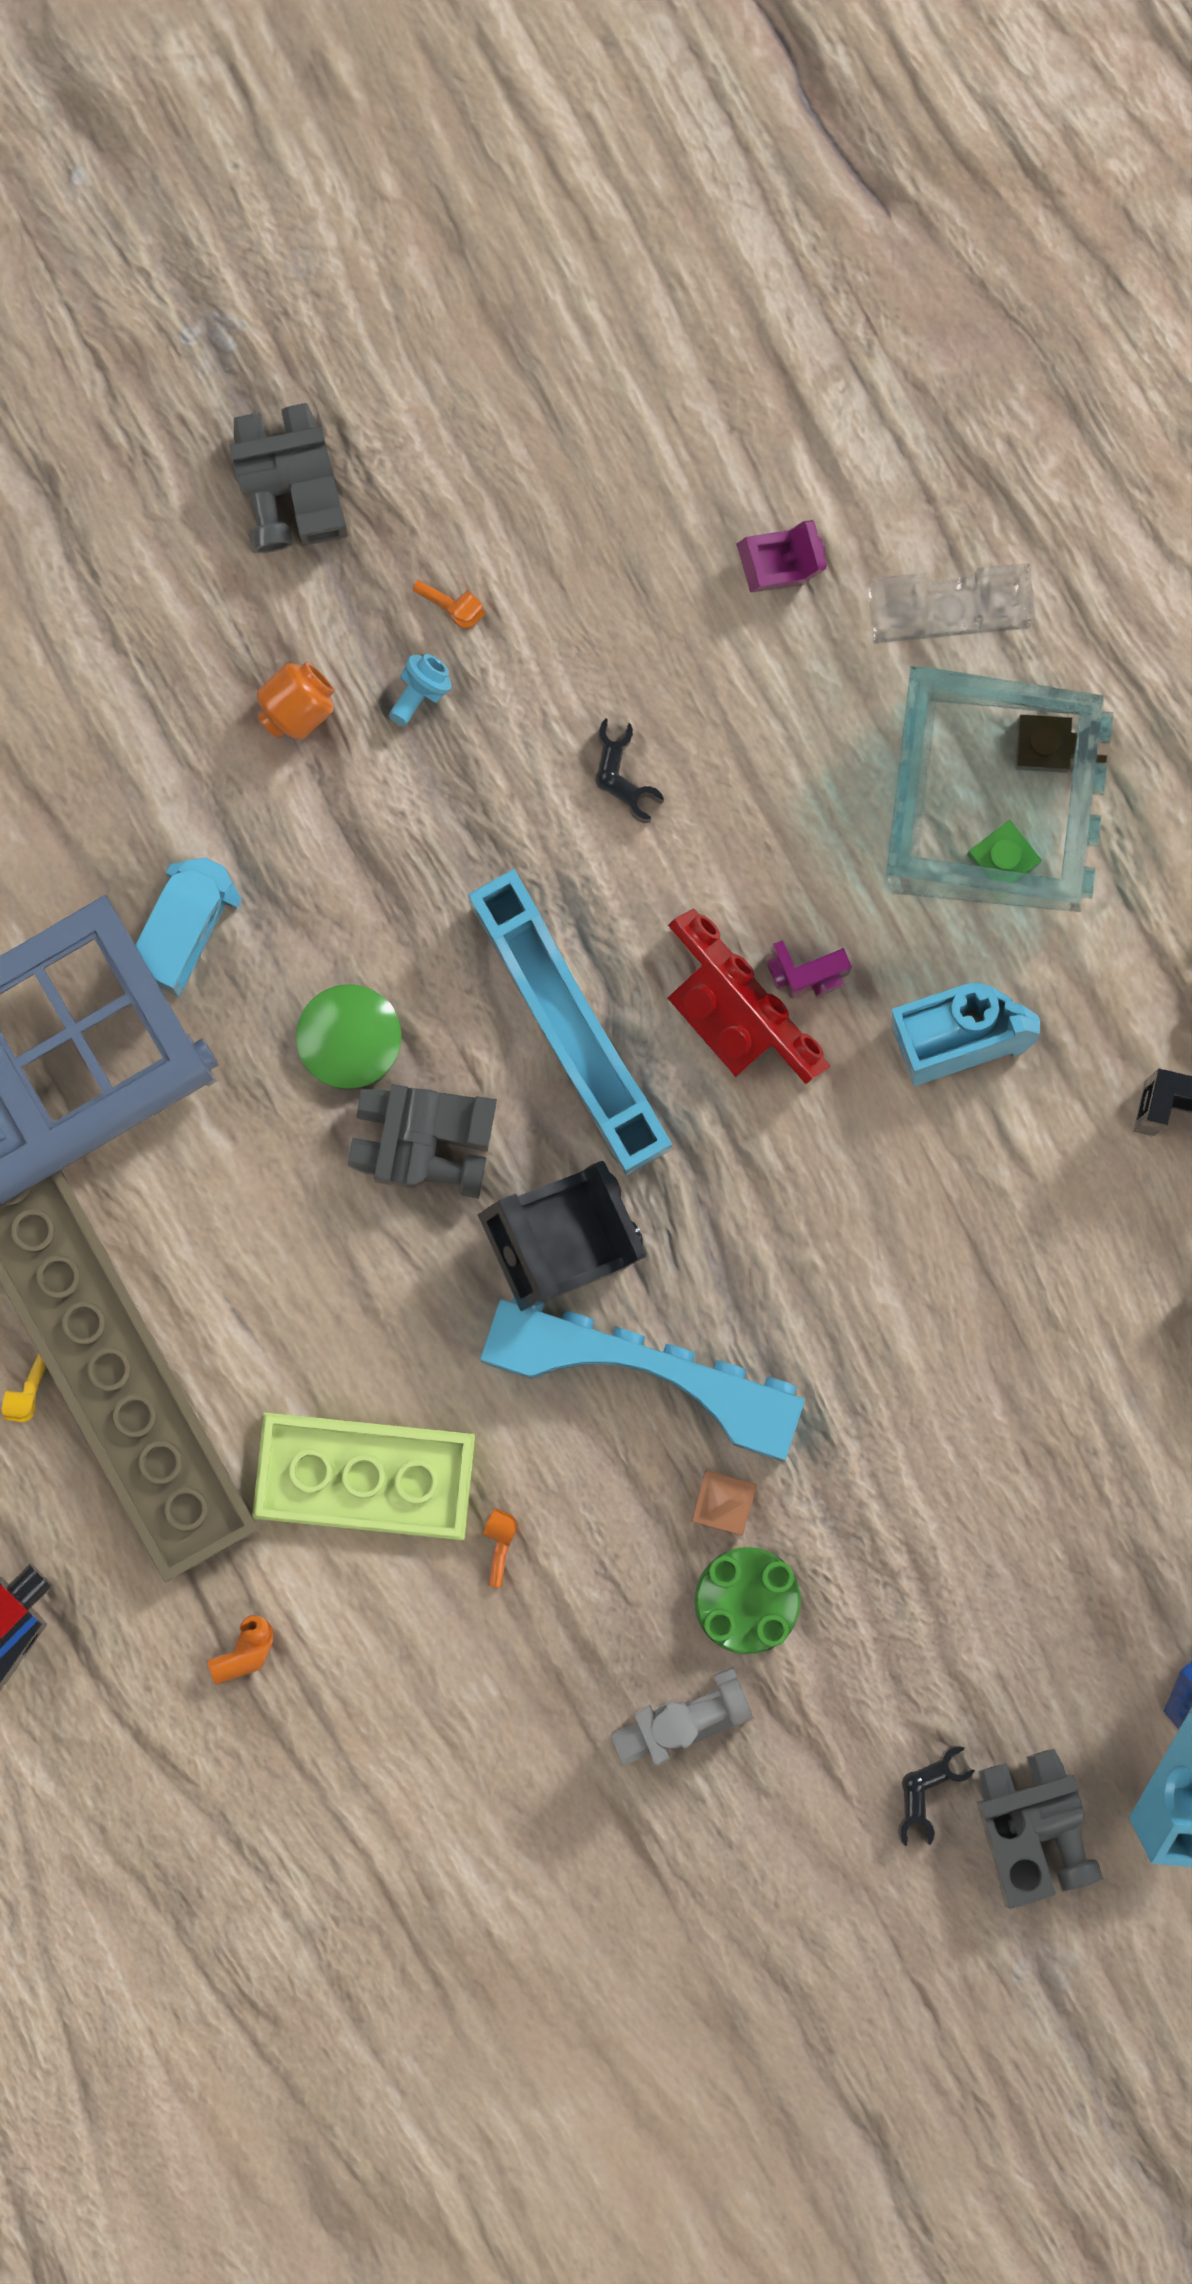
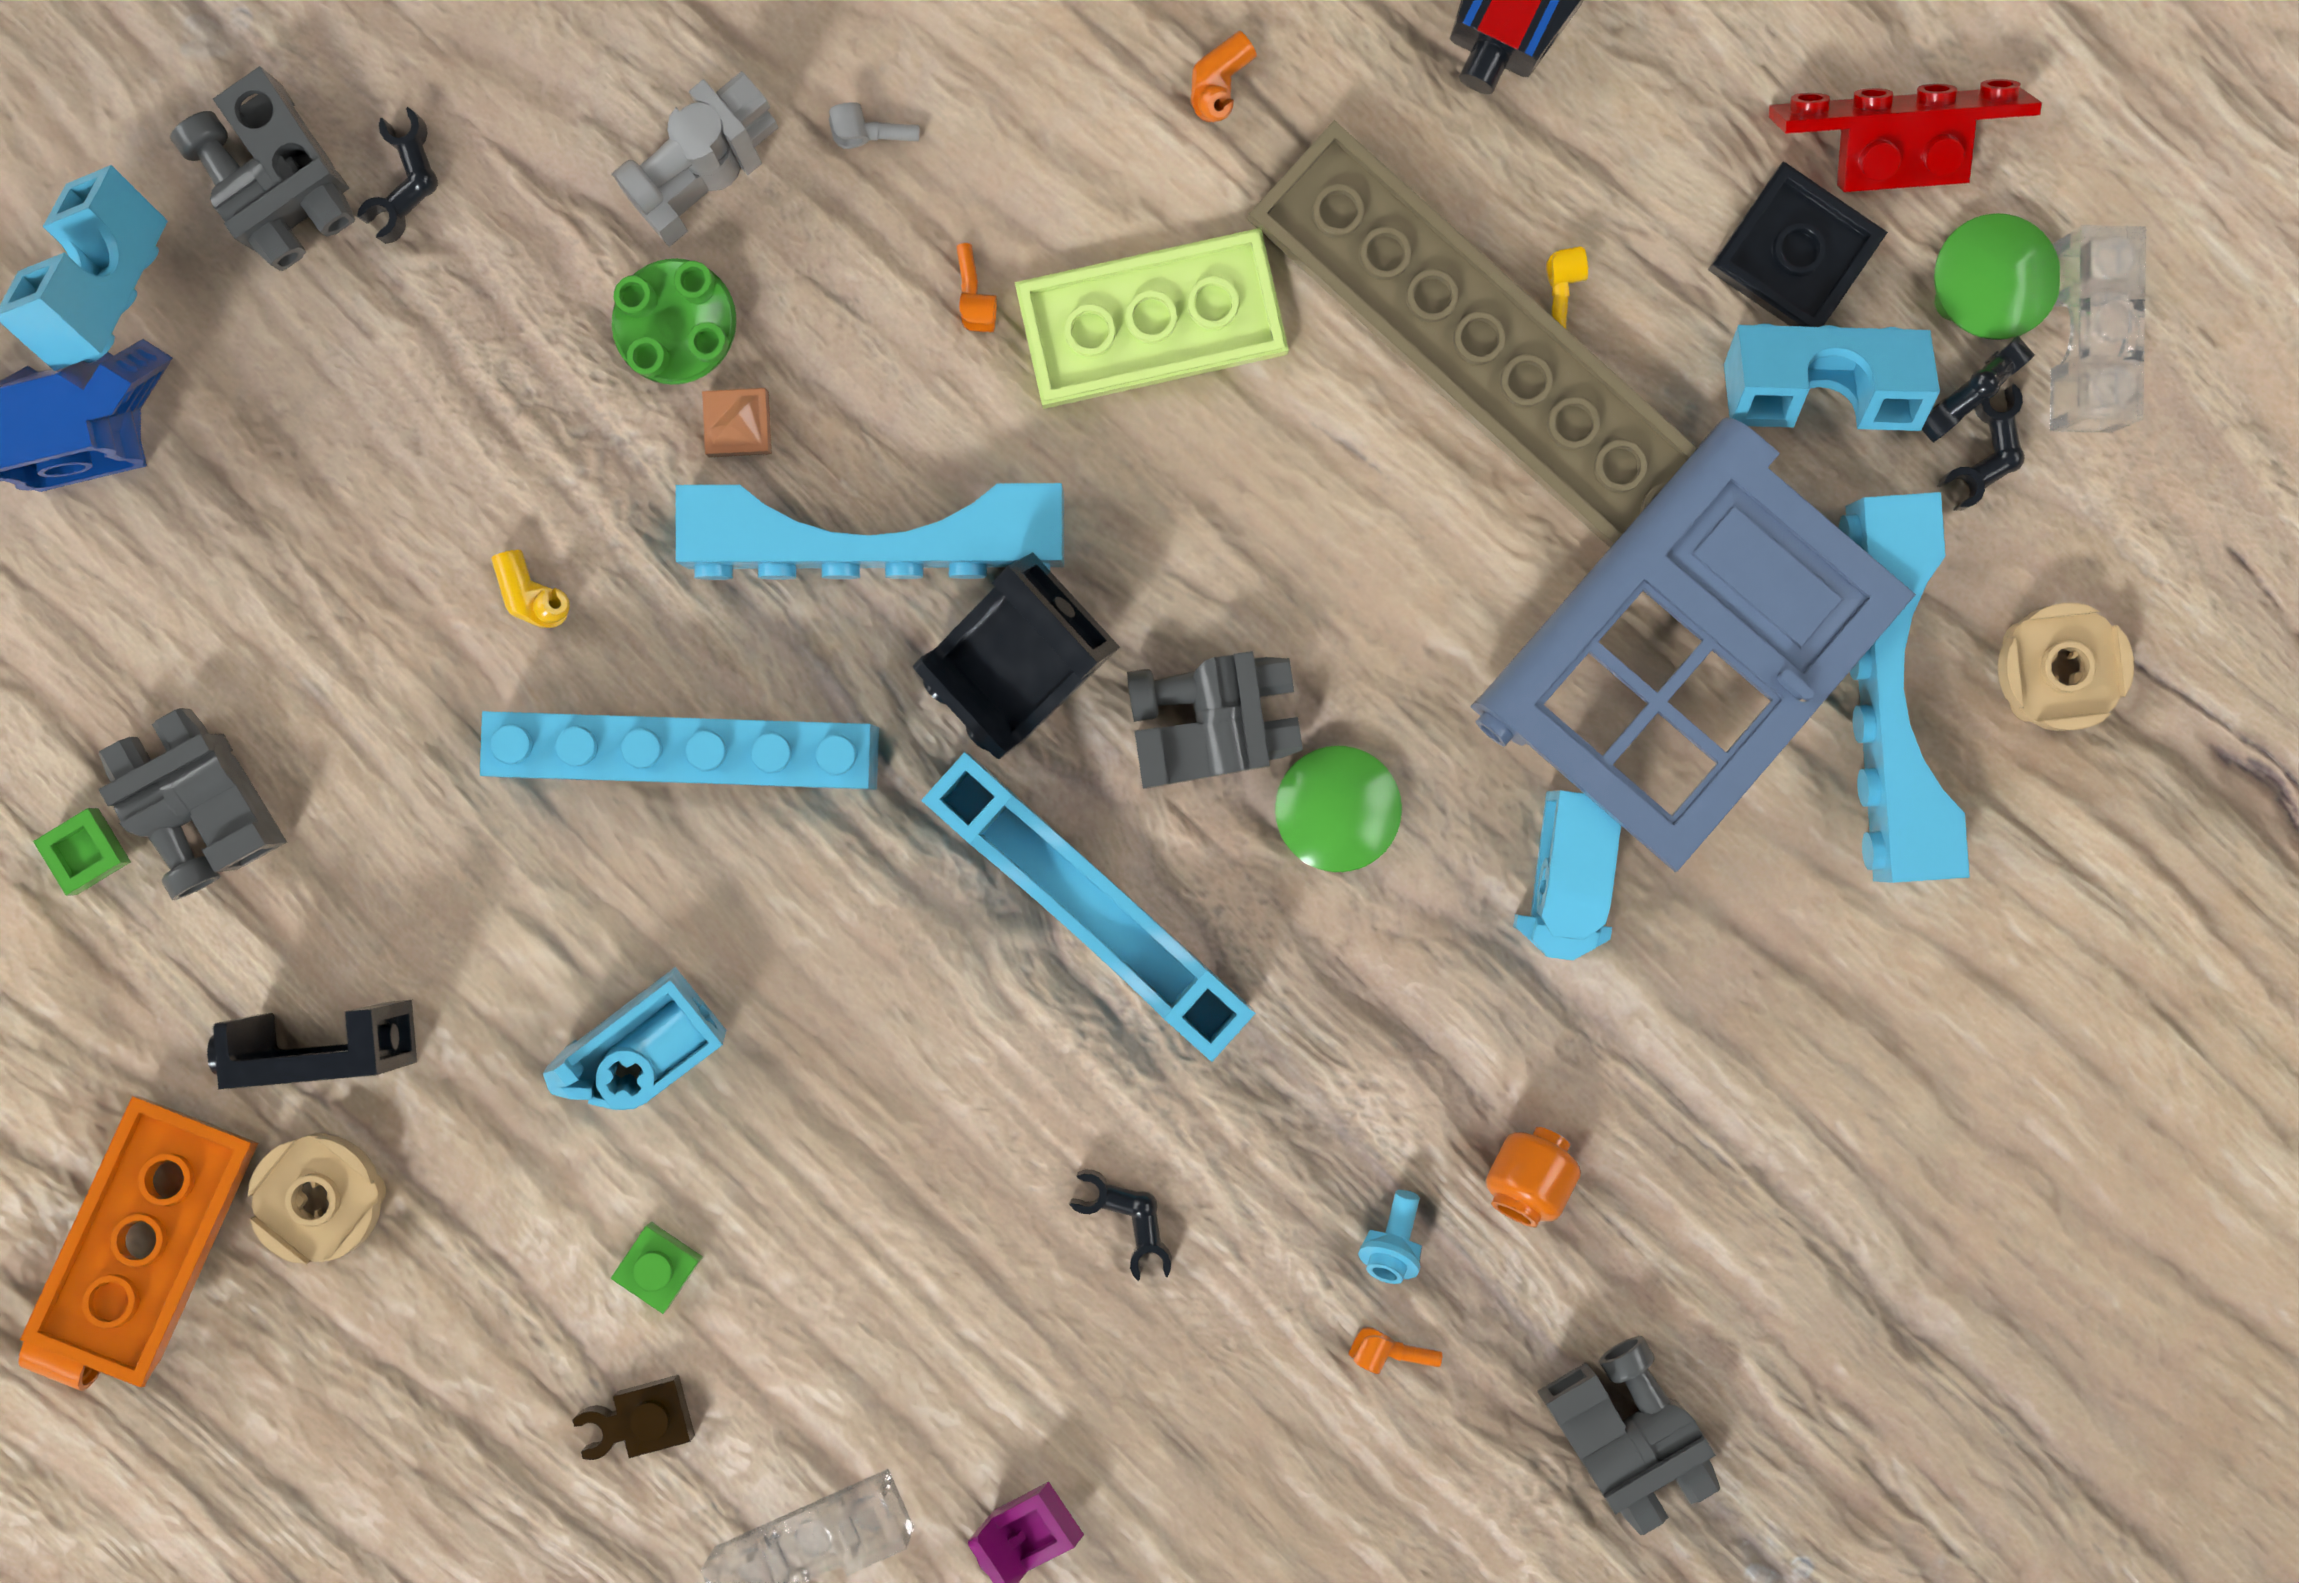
camera: 165 degrees right, 5 degrees up
(554, 1711) = (851, 130): none -> light grey hand
(733, 1009) = (906, 985): red bracket -> none
(818, 975) = (821, 1057): magenta bracket -> none
(852, 1250) = (679, 750): none -> medium azure arch
(936, 1416) = (526, 598): none -> yellow arm
(963, 882) = (713, 1216): clear light blue windscreen -> none

